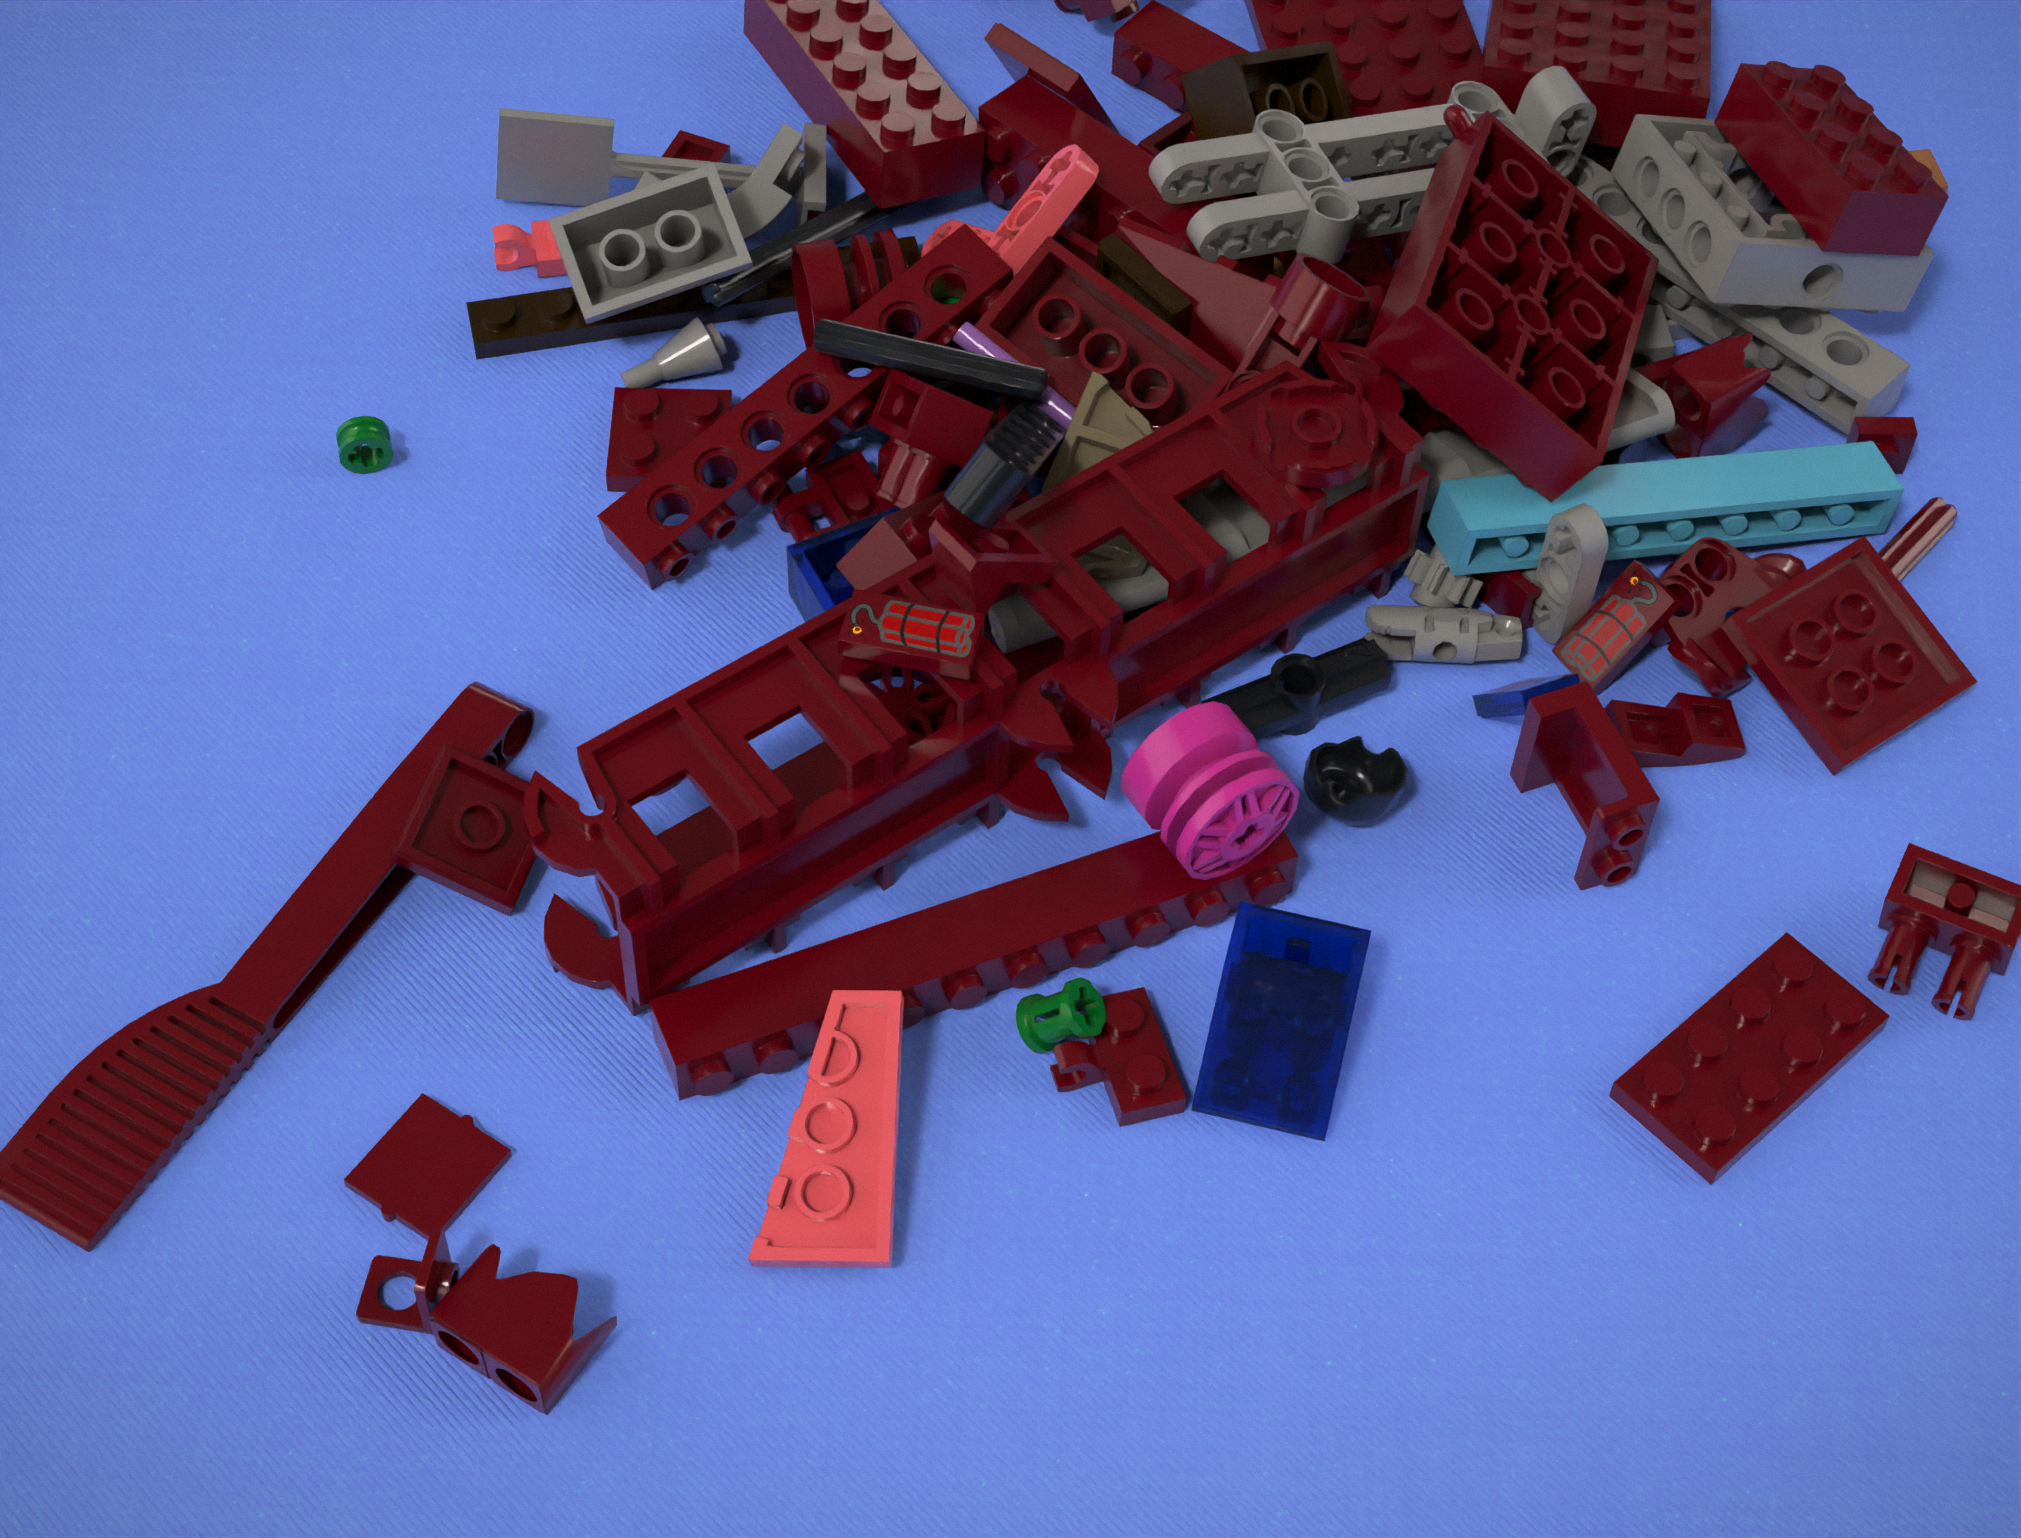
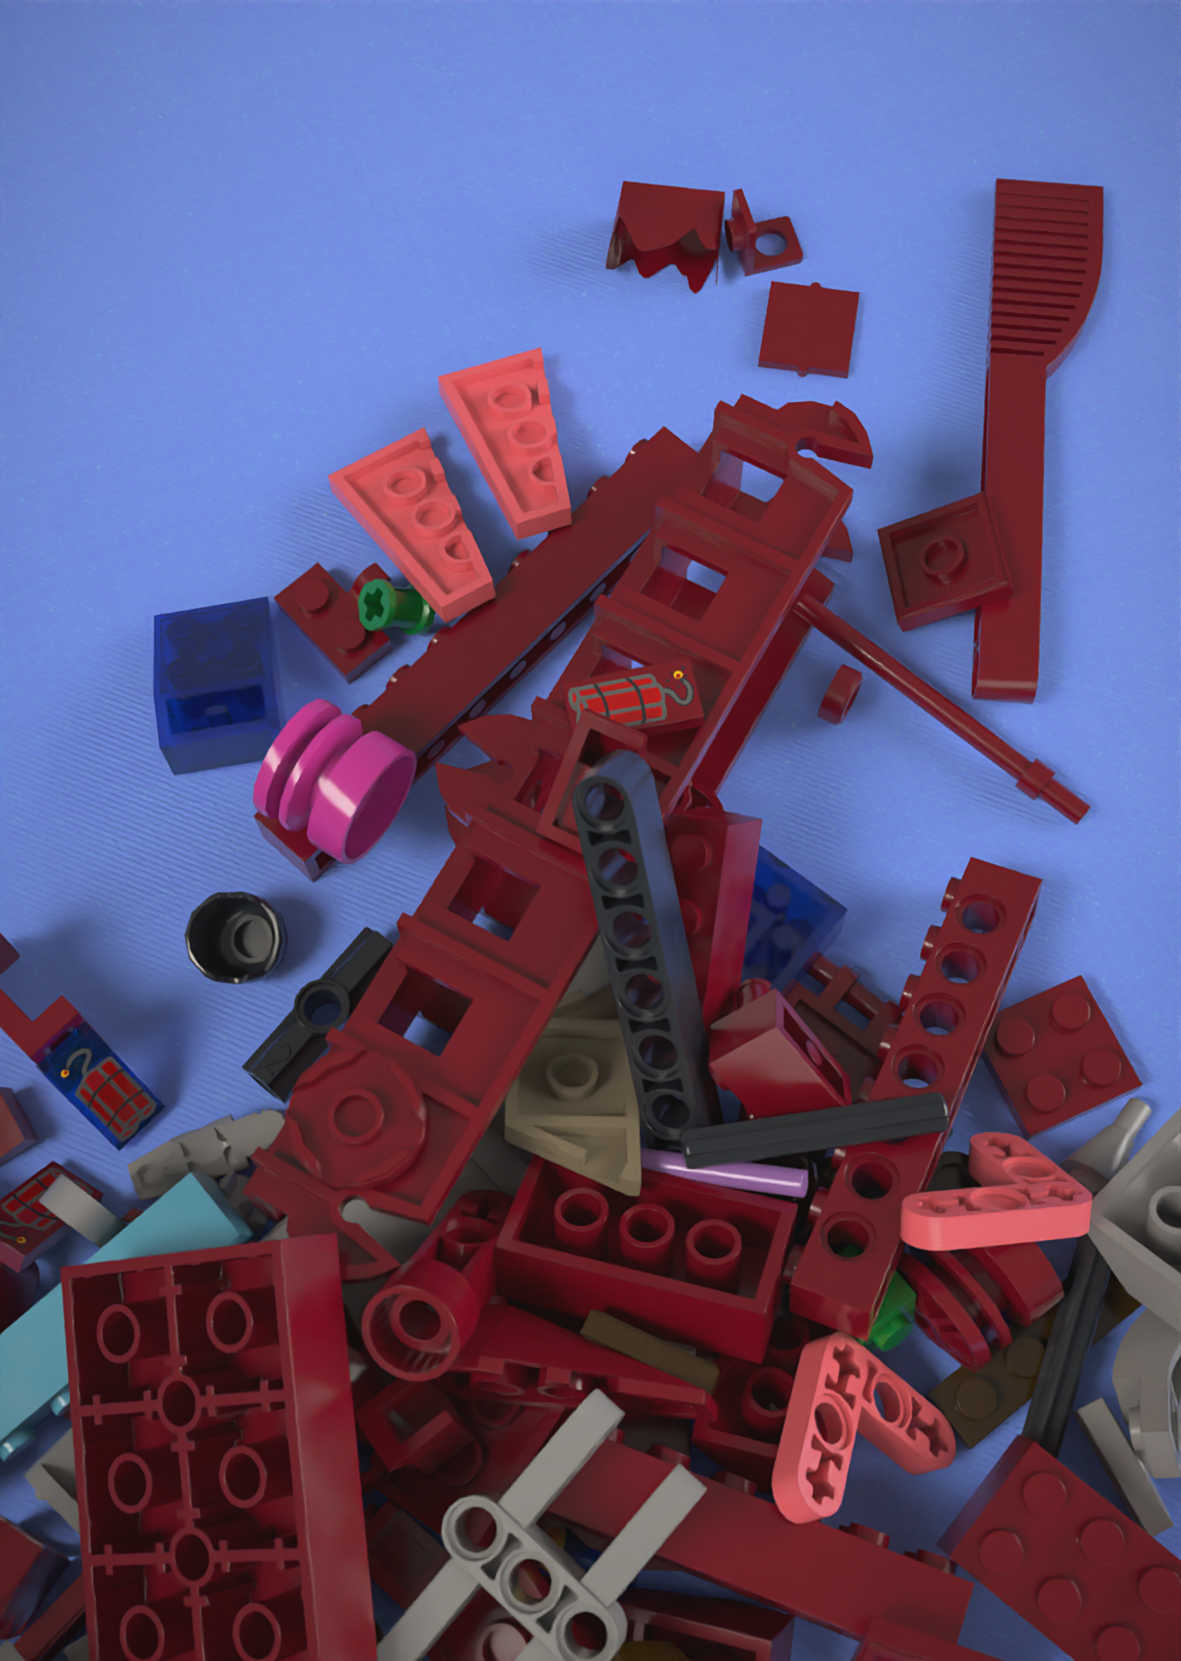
camera: 160 degrees right, 15 degrees up
(532, 640) = (1033, 778): none -> dark red bar
(785, 276) = (1020, 1201): none -> coral beam
(997, 1109) = (417, 523): none -> coral wing

